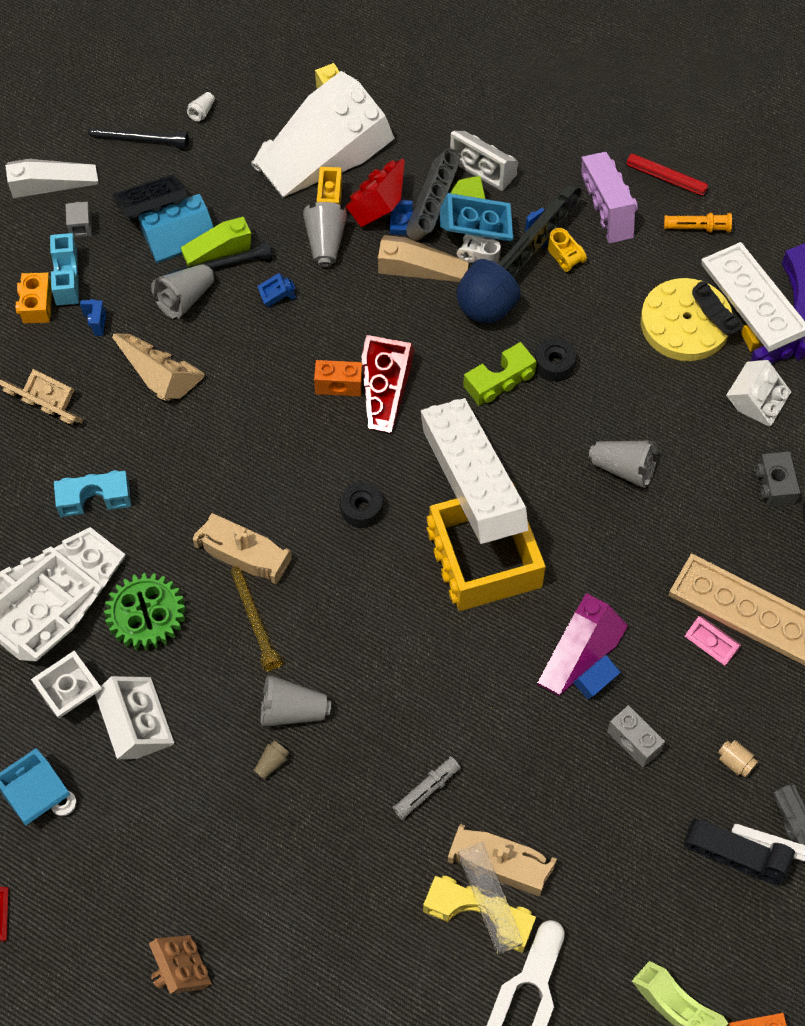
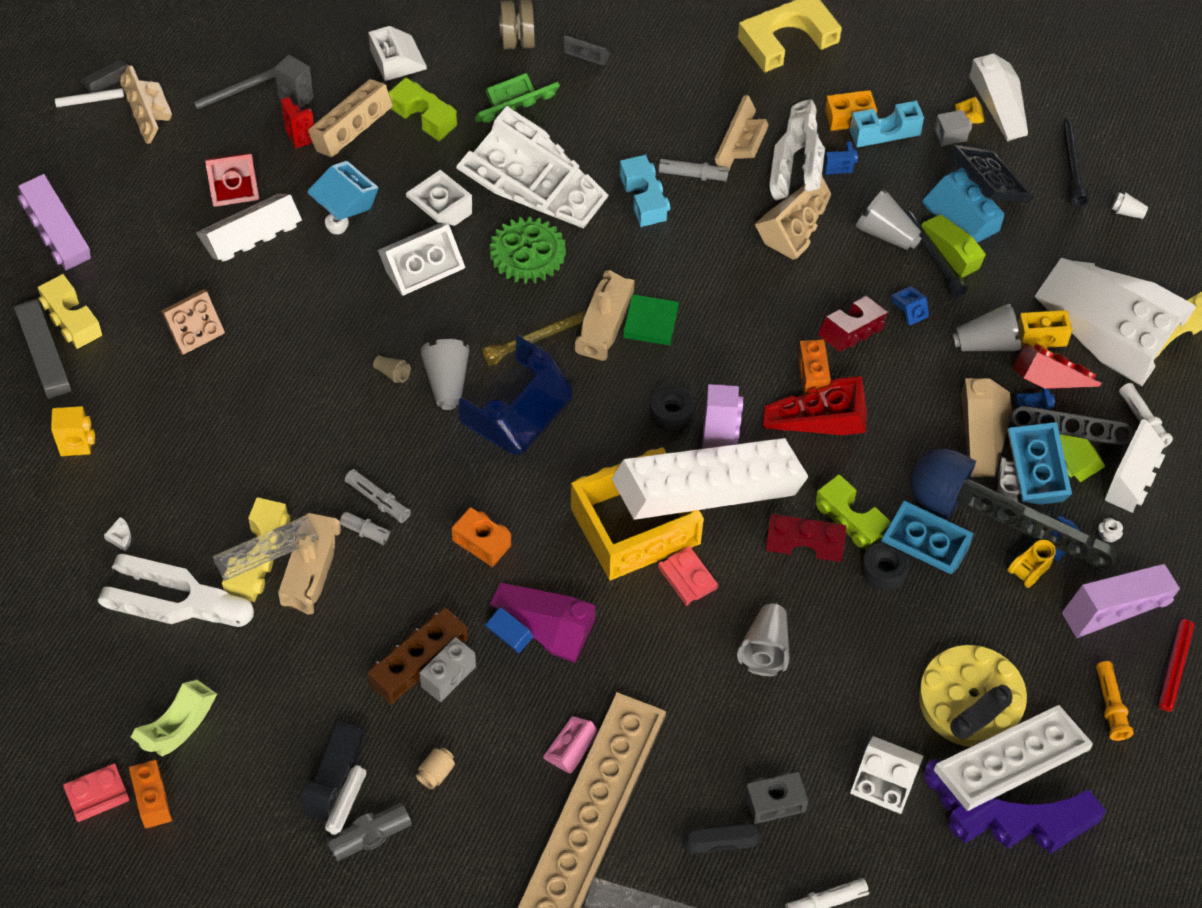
camera: 80 degrees right, 5 degrees down
(48, 898) = (250, 226): none -> white slope
(57, 204) = (972, 110): none -> yellow slope
(59, 343) = (799, 134): none -> white piece
(78, 438) = (701, 171): none -> light grey pin
(253, 508) = (651, 319): none -> green tile
(308, 338) = (861, 322): none -> dark red arch
(366, 647) = (521, 422): none -> clear blue windscreen
(403, 455) = (722, 416): none -> lavender wedge
(436, 140) = (1141, 411): none -> white pin
(463, 803) = (365, 527): none -> light grey axle
(482, 704) = (486, 548): none -> orange brick
(521, 414) = (790, 532): none -> dark red arch
(535, 191) = (1107, 534): none -> white plate
(539, 318) = (928, 537): none -> dark azure slope
(549, 518) = (688, 575): none -> coral plate
(614, 749) = (394, 685): none -> reddish brown brick

